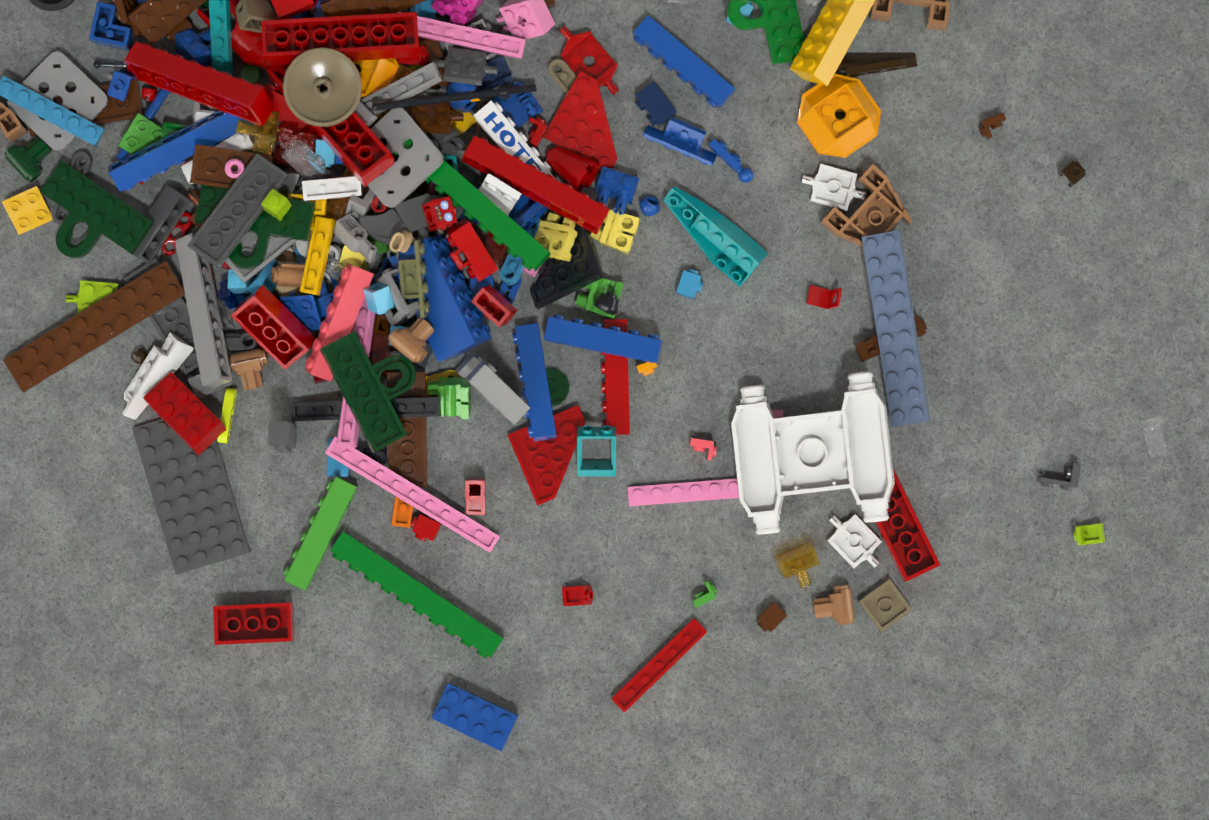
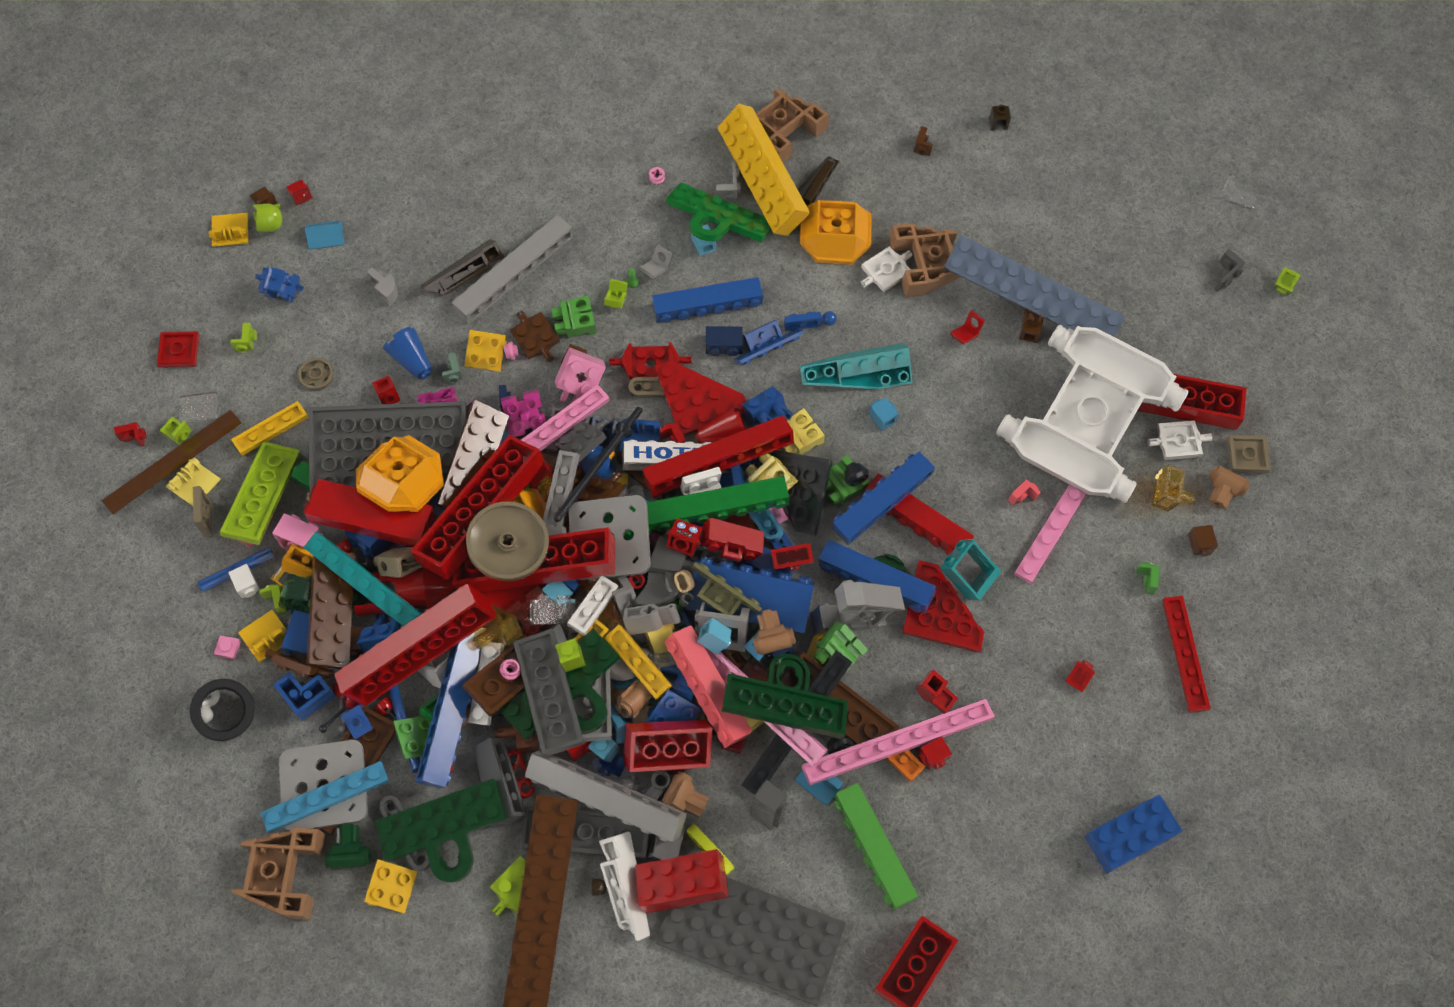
camera: 55 degrees left, 20 degrees down
(416, 594) = (988, 804): green brick -> none
(646, 368) = (927, 490): light orange plate -> none
(649, 206) = (799, 398): blue piece -> none

